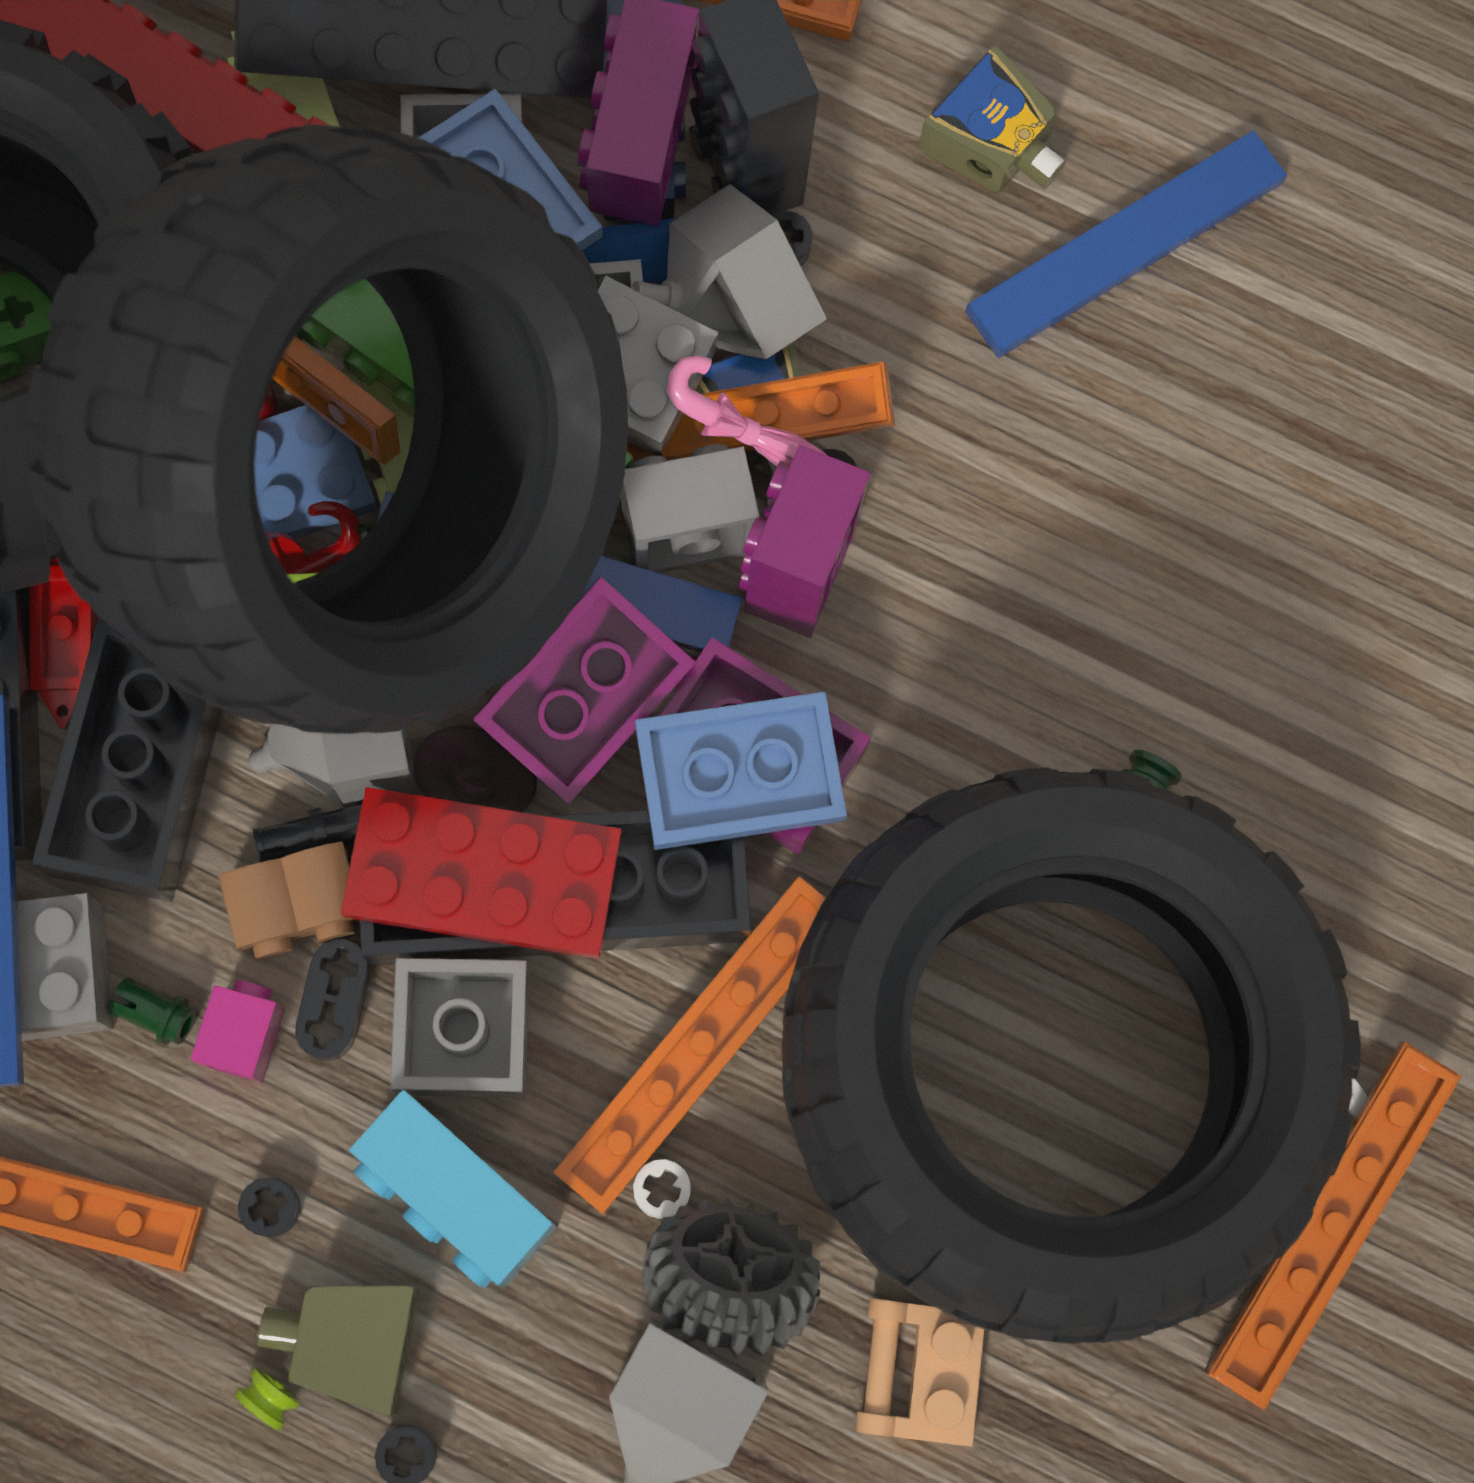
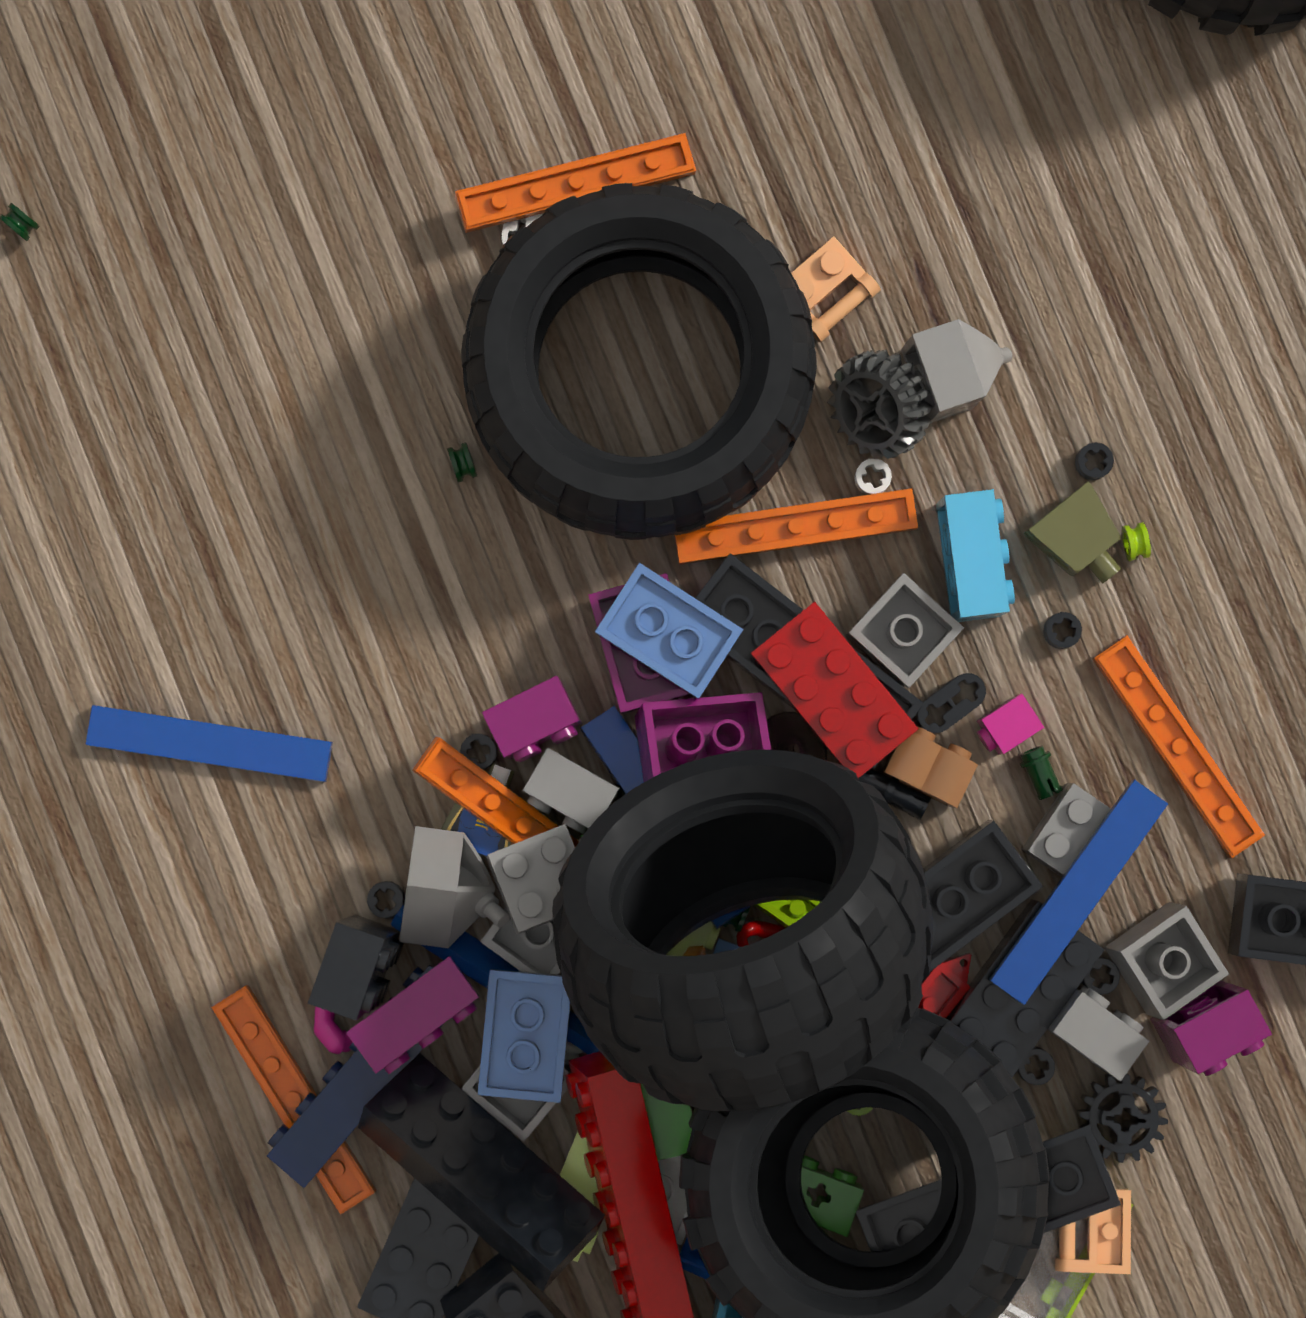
camera: 130 degrees left, 10 degrees up
(724, 419) = (522, 808): bright pink piece -> none
(994, 127) = (221, 863): torso -> none

